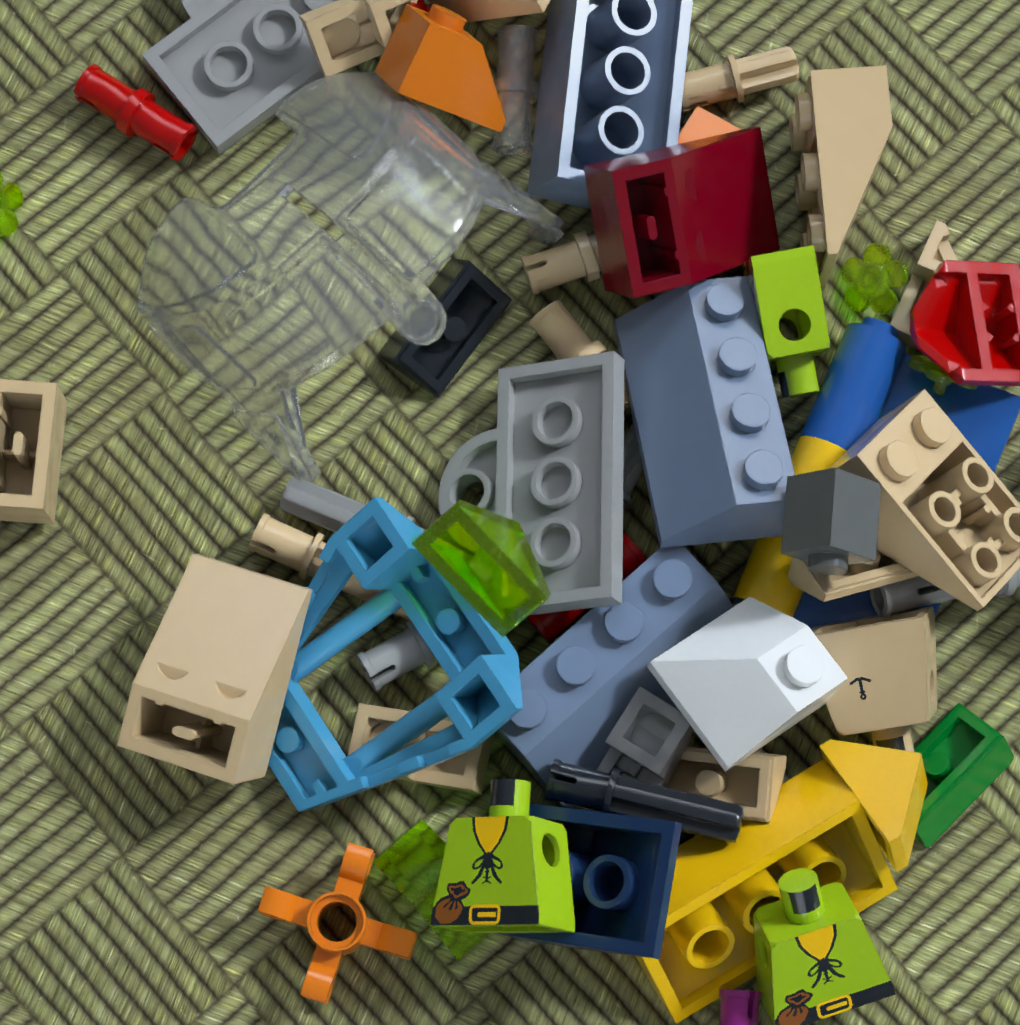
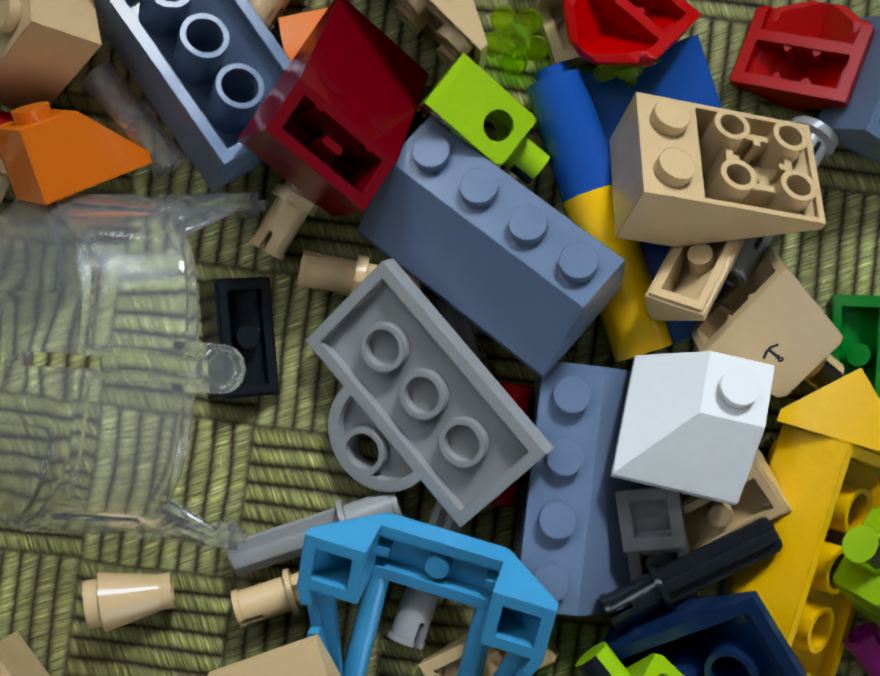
camera: 40 degrees left, 10 degrees up
(178, 448) = (125, 597): none -> tan cone
(486, 563) = (430, 505): clear neon green slope -> none
(831, 520) = (666, 259): dark grey brick -> none

